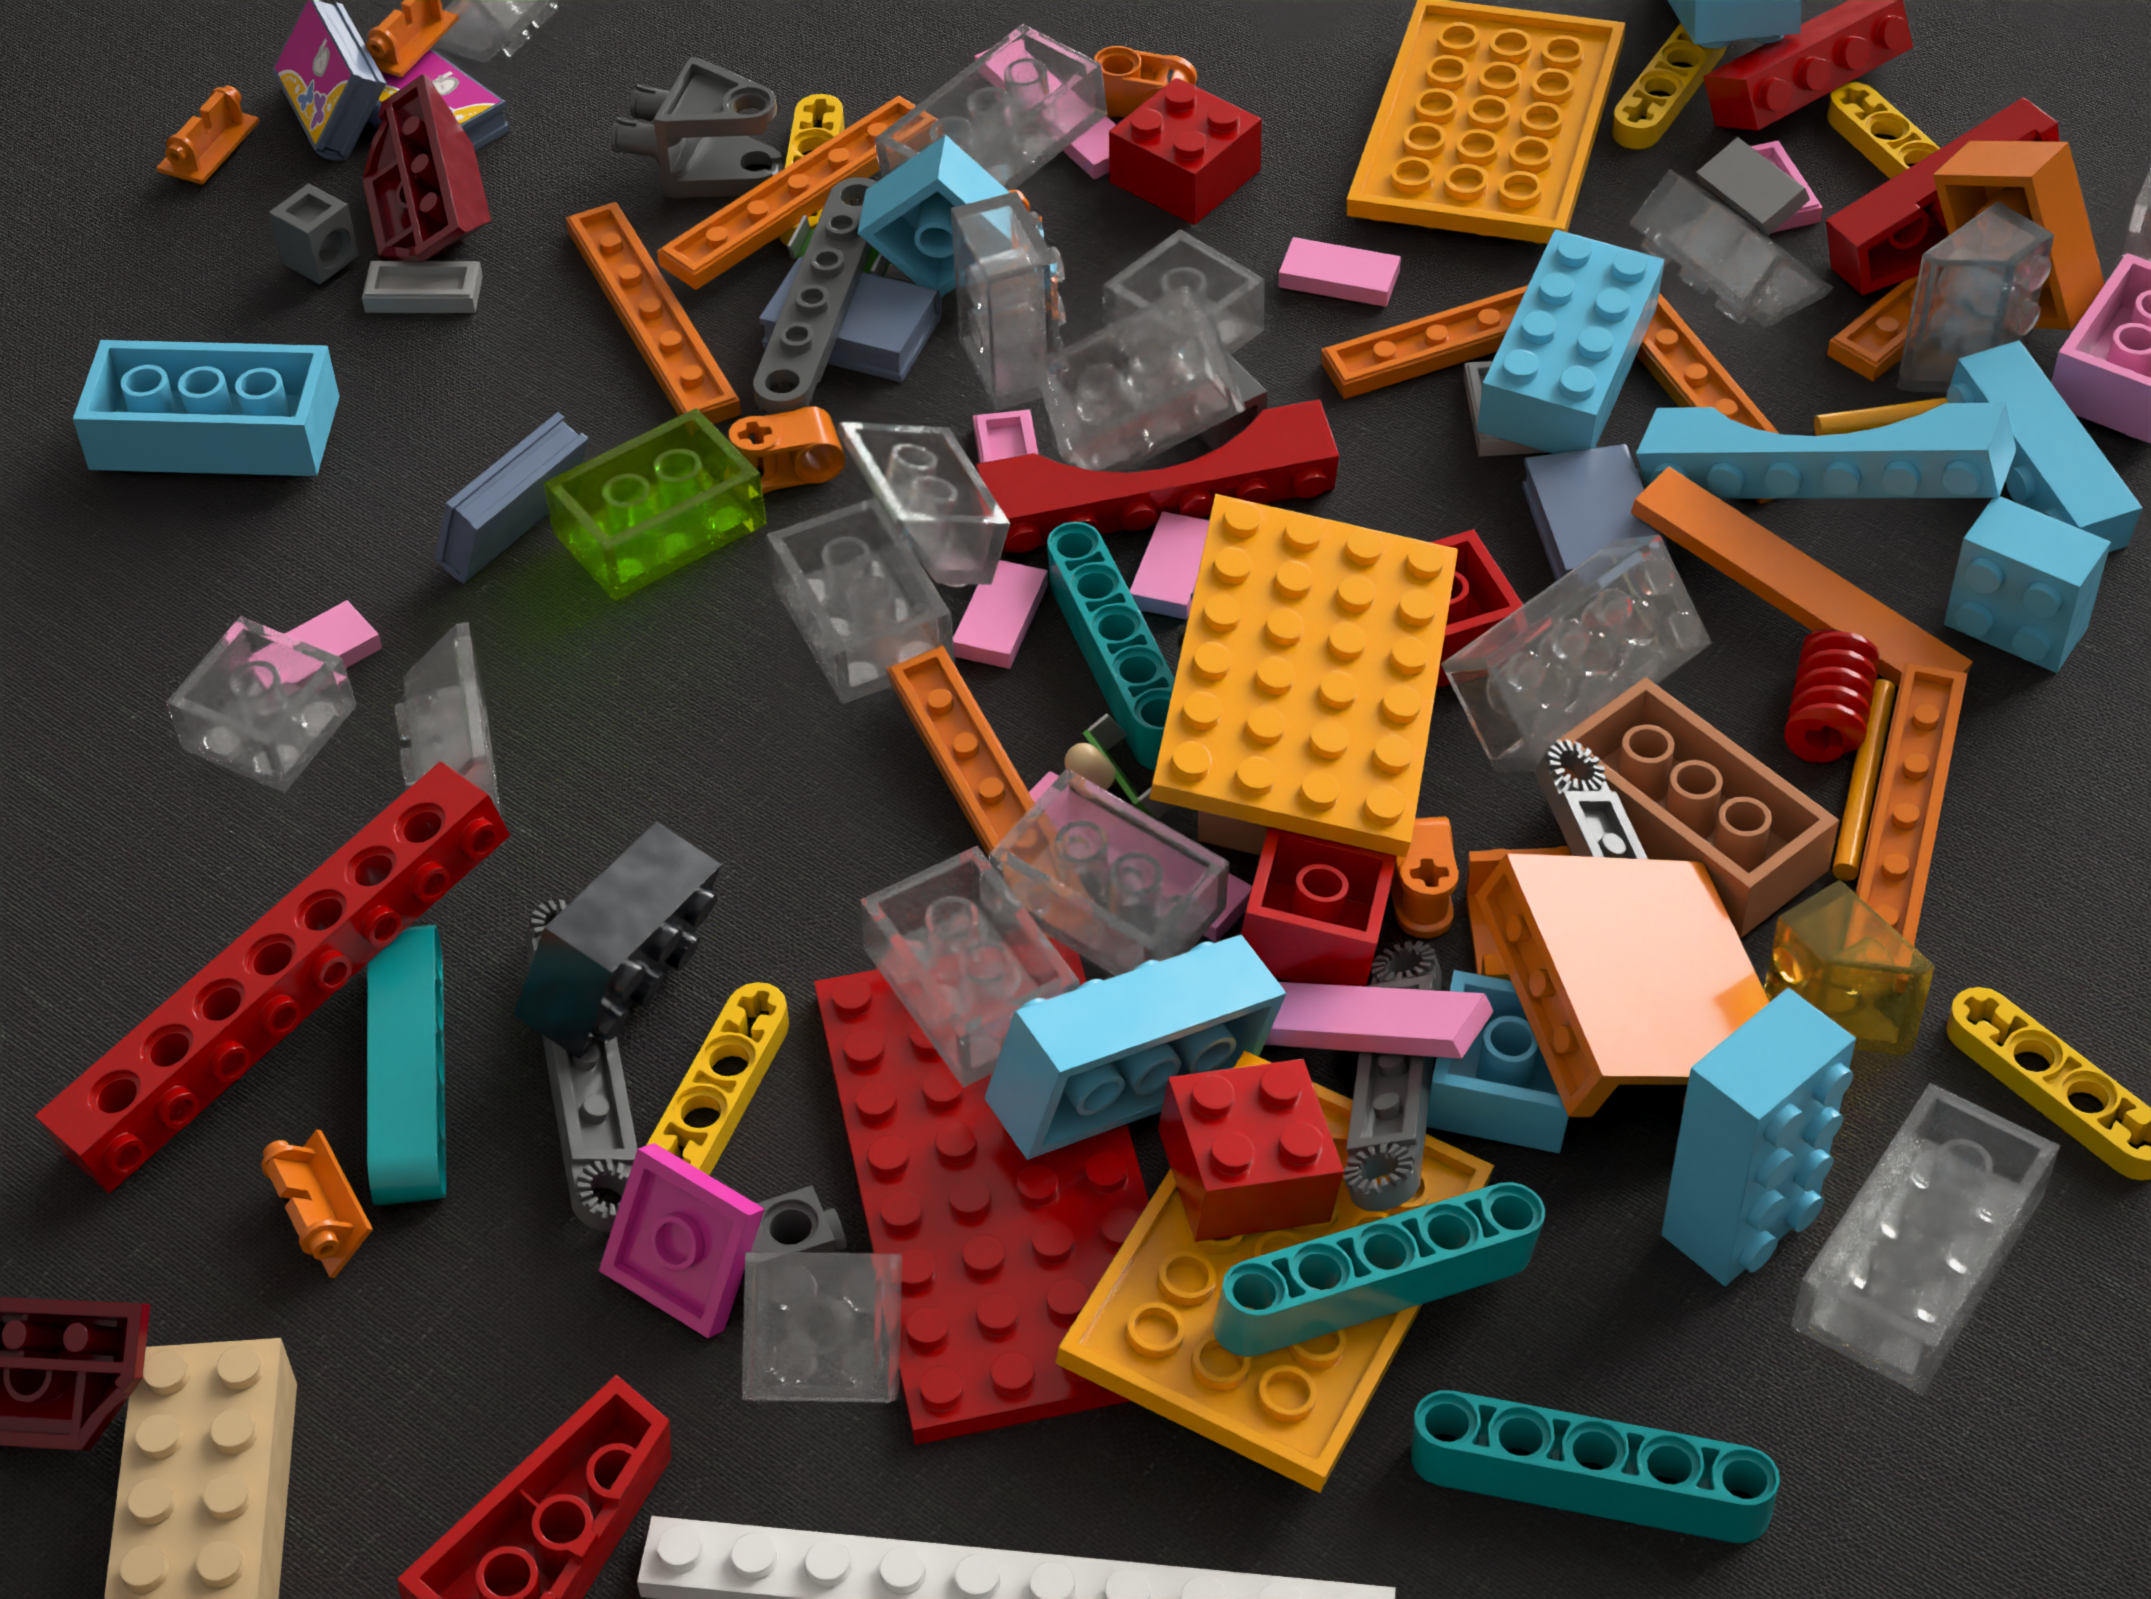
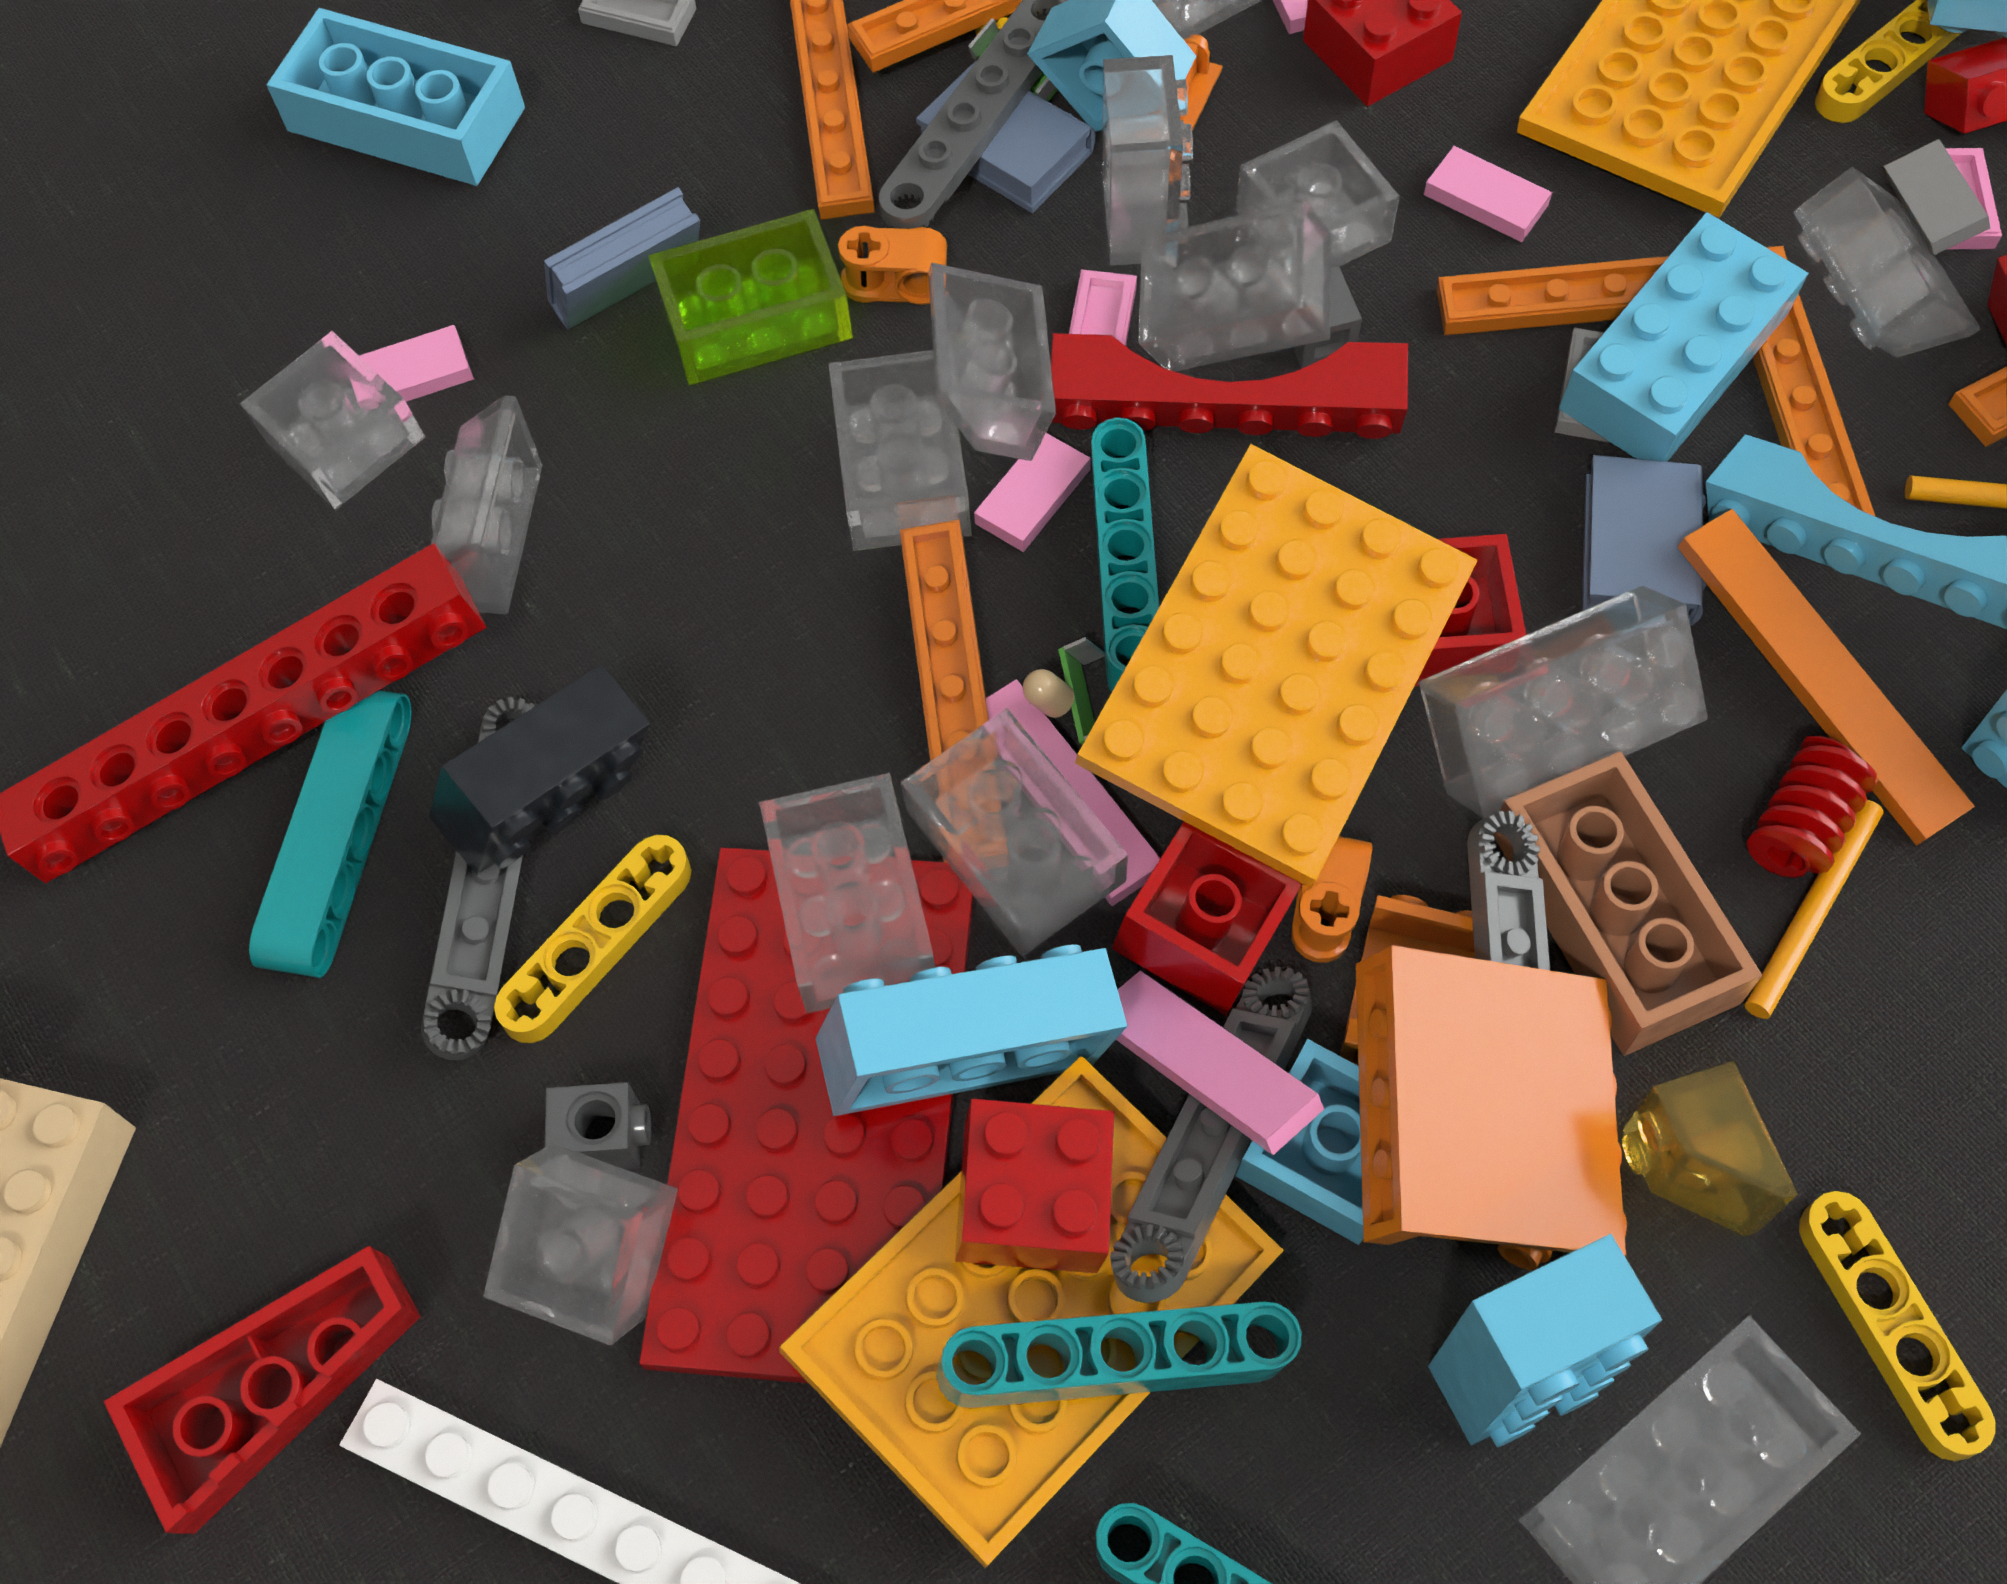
camera: 20 degrees right, 15 degrees up
(321, 1200) = (207, 977): orange hinge -> none
(681, 1240) = (494, 1098): dark pink tile -> none
(1170, 566) = (1205, 478): bright pink tile -> none
(1910, 795) = (1844, 964): orange tile -> none

